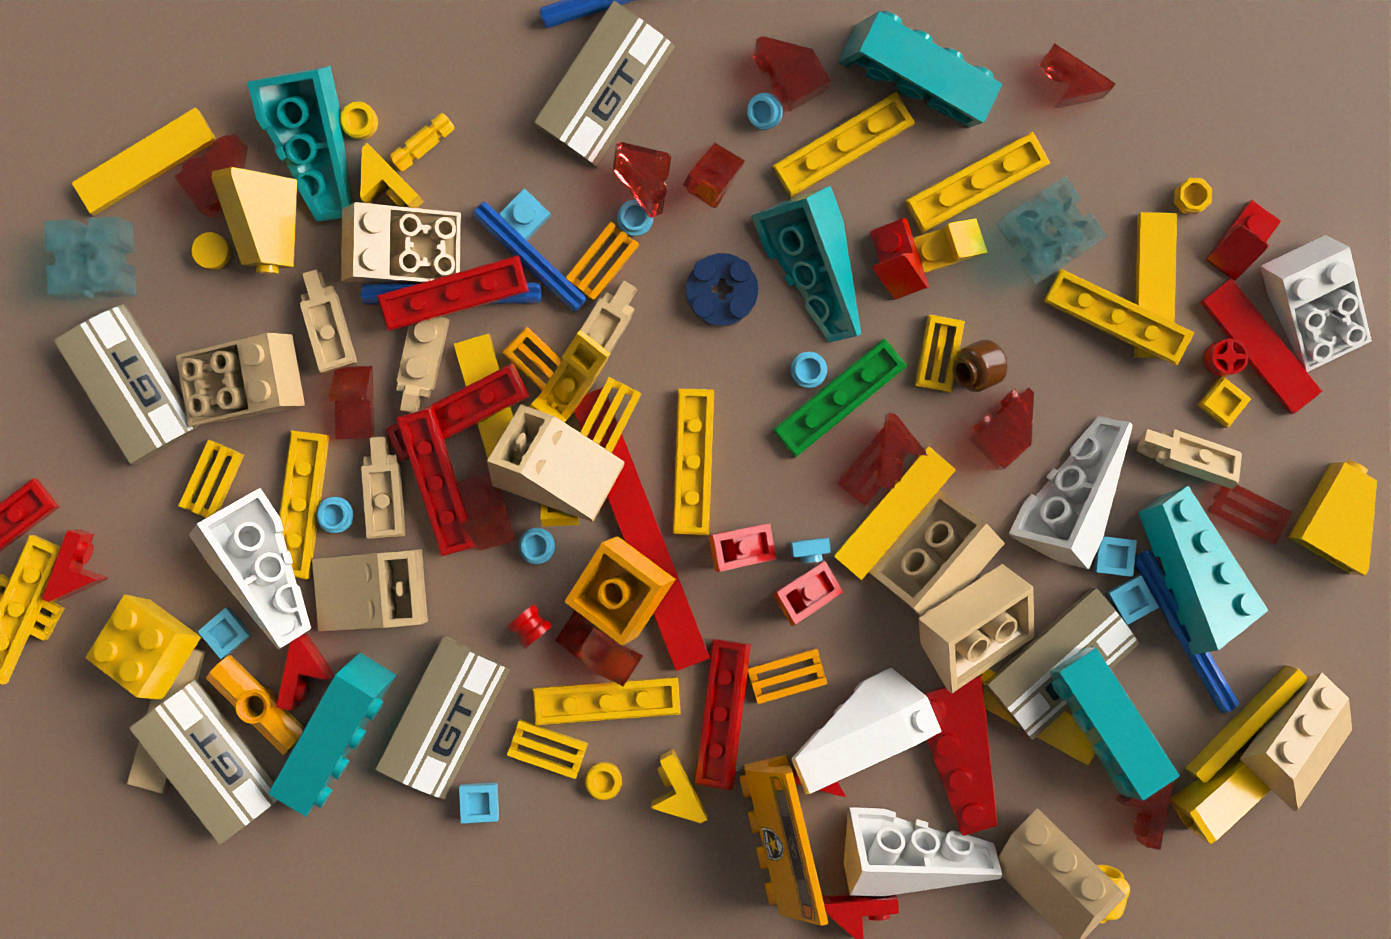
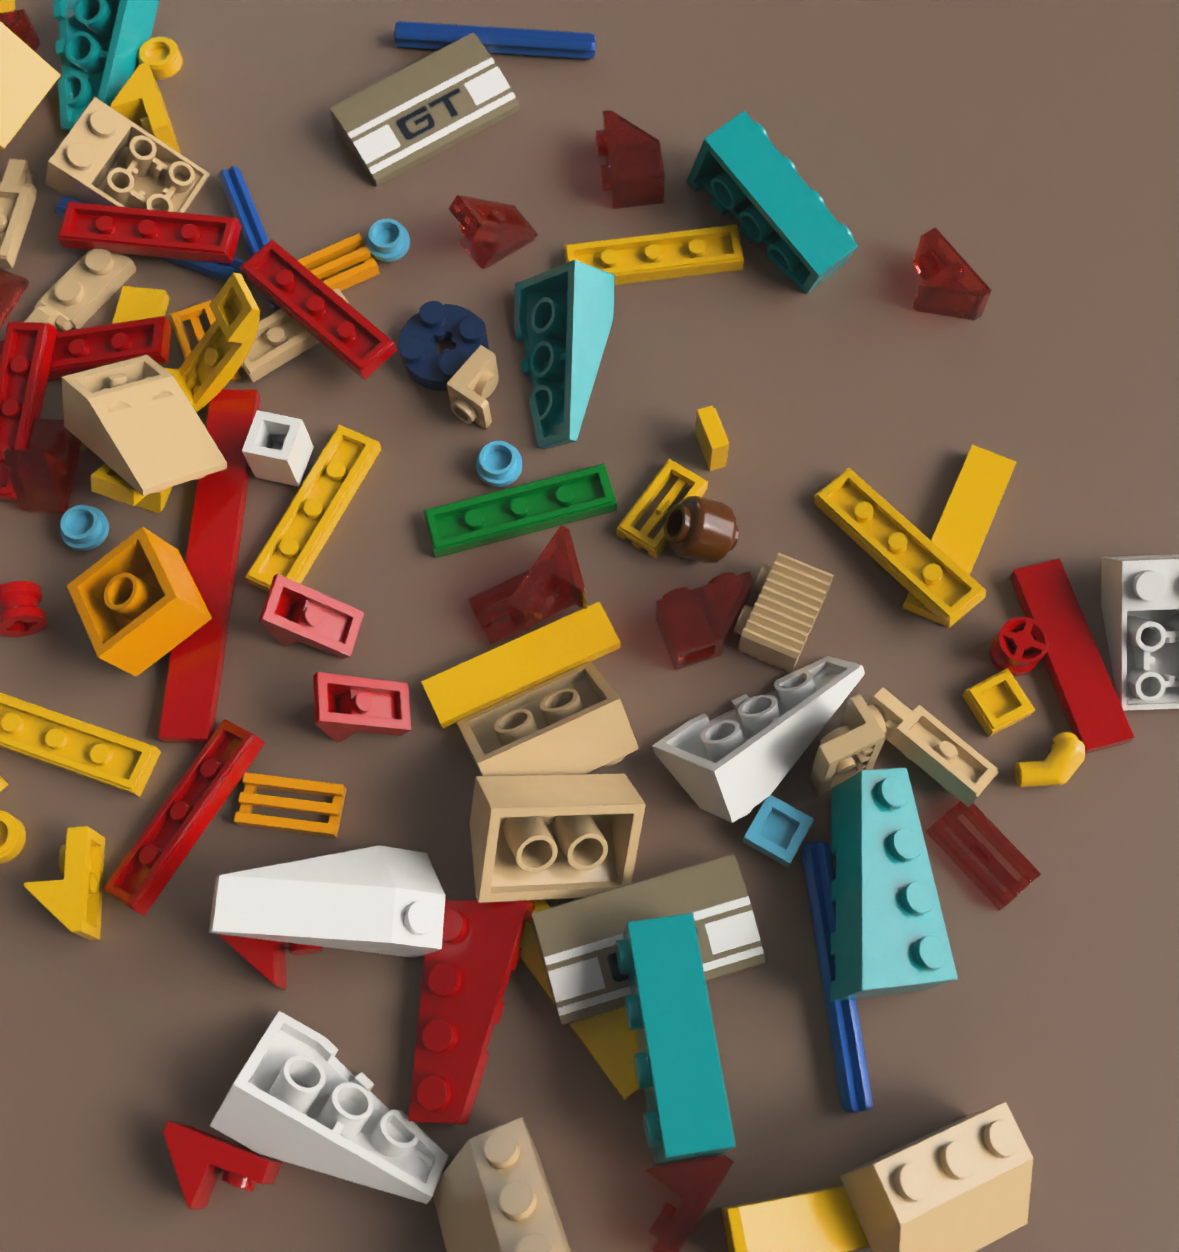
camera: 25 degrees right, 20 degrees down
(422, 142) = (209, 95): yellow axle -> none
(525, 214) = (275, 198): medium azure plate -> none
(598, 649) = (78, 673): clear red slope -> none
(620, 306) = (318, 309): none -> red tile
(622, 390) = (238, 412): yellow tile -> none
(643, 174) = (419, 196): clear red slope -> none
(650, 429) = (278, 448): none -> white brick
(764, 111) = (581, 190): medium azure plate -> none
(764, 313) = (472, 386): none -> tan bracket
(784, 840) = (169, 1008): light orange piece -> none
(810, 550) = (395, 658): medium azure plate -> none
(899, 259) = (657, 386): red slope -> none
(950, 245) = (739, 396): yellow slope -> none
(955, 287) = (711, 437): none -> yellow tile
(977, 182) = (789, 348): yellow tile -> none
(1059, 400) = (783, 612): none -> tan brick
(1072, 235) = (852, 414): clear light blue brick -> none
(1132, 599) = (779, 896): medium azure plate -> none
(1153, 483) = (850, 746): none -> tan bracket
(1193, 196) = (1044, 451): yellow tile -> none
(1243, 240) = (1090, 524): red slope -> none
(1246, 723) = (872, 1138): yellow tile -> none
(1278, 434) = (1057, 768): none -> yellow arm
(1340, 518) = (1105, 910): yellow slope -> none

